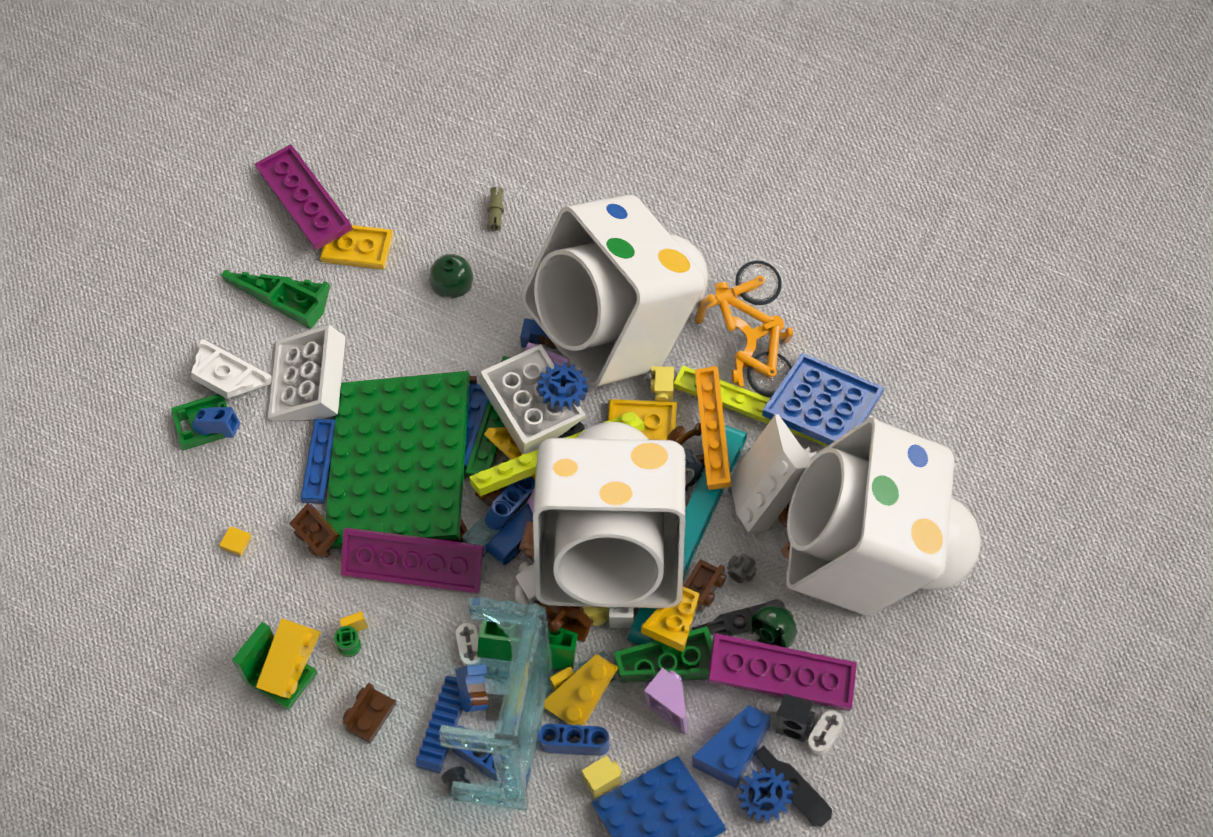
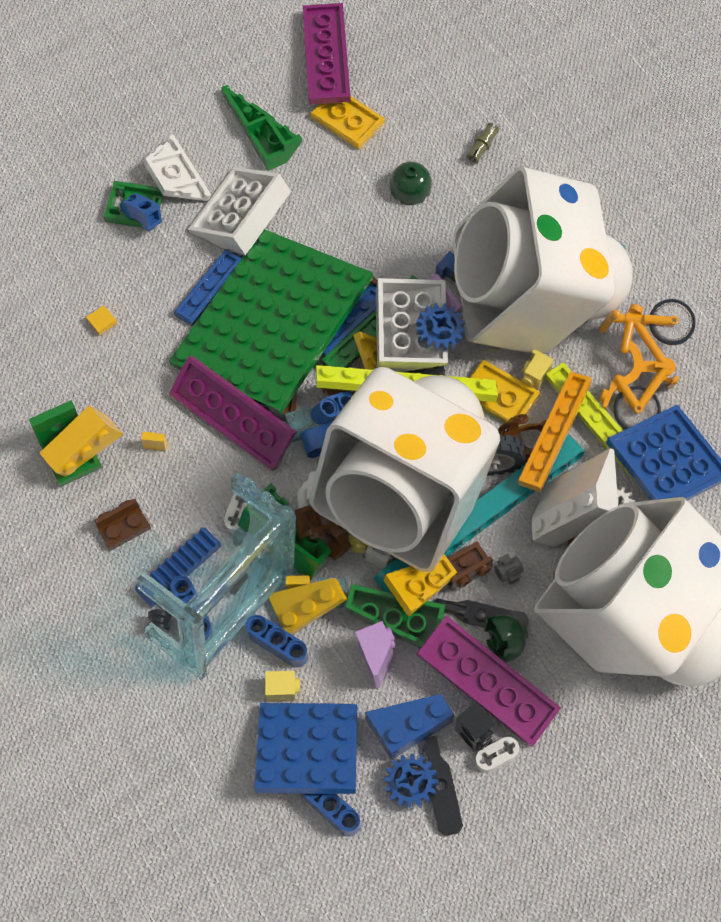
camera: 25 degrees right, 5 degrees up
(314, 530) = (167, 345): reddish brown bracket -> none
(350, 646) = (143, 458): green wheel -> none
(472, 687) = (216, 549): blue leg -> none

